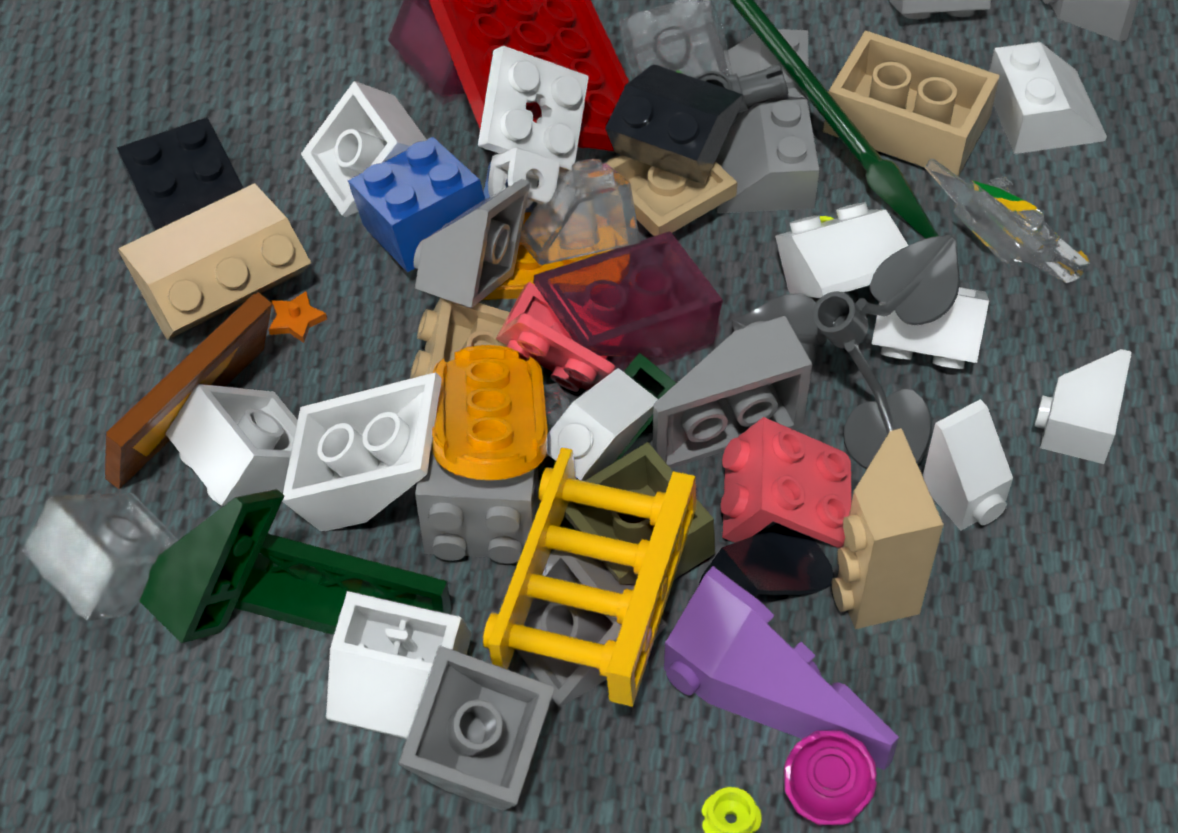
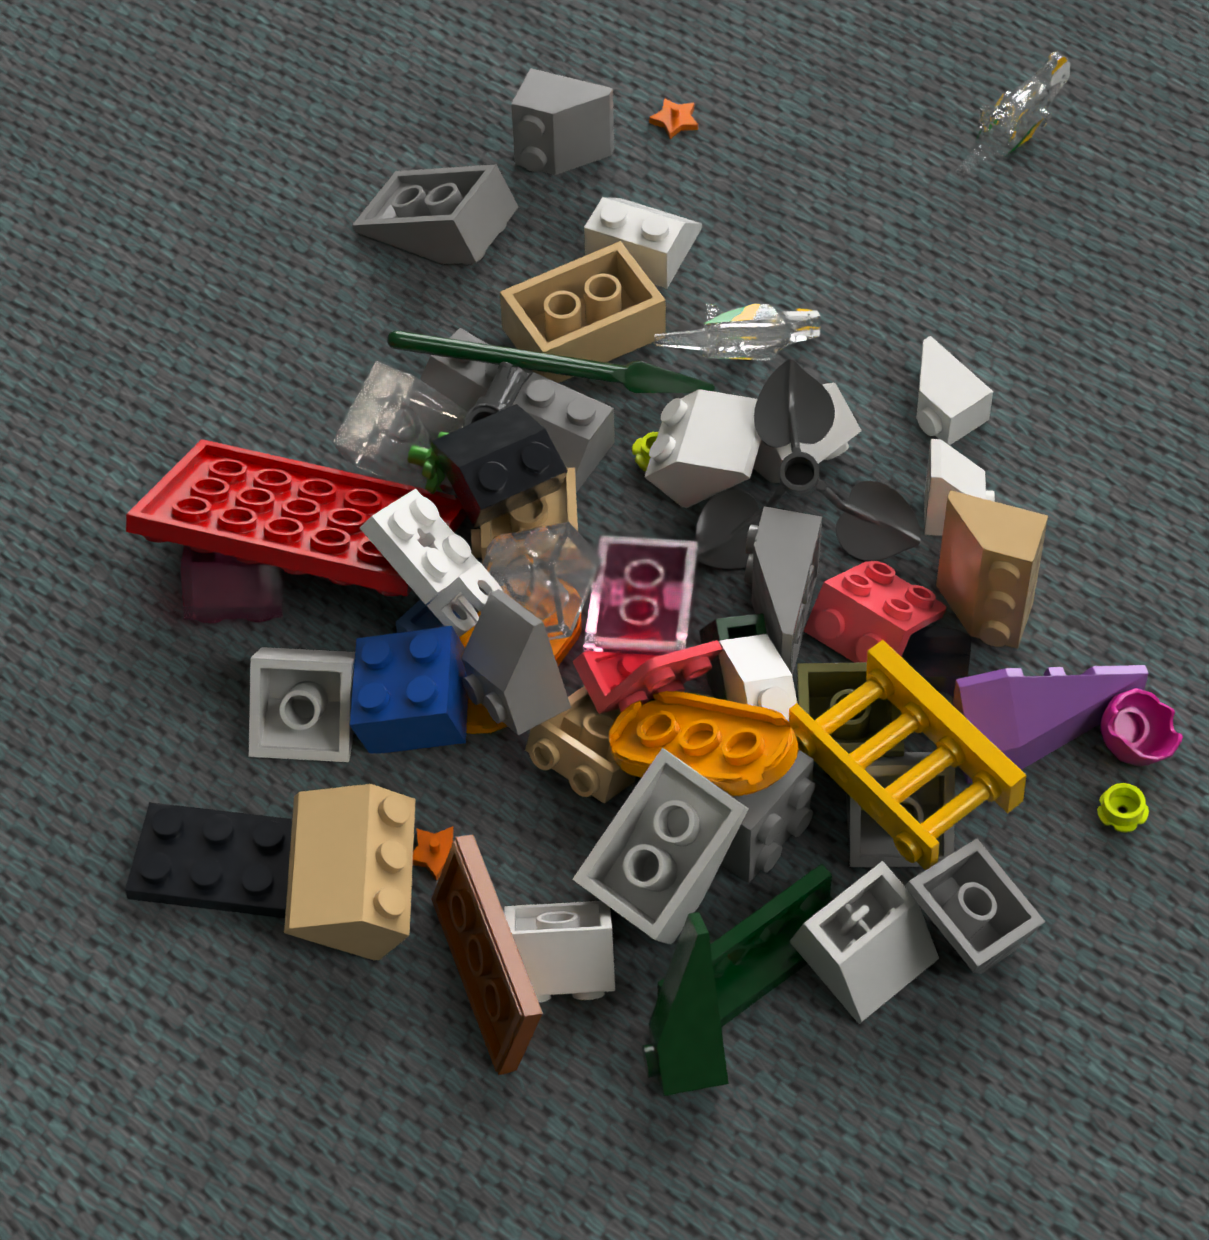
camera: 55 degrees left, 0 degrees up
(98, 550) = (595, 1102): clear slope -> none

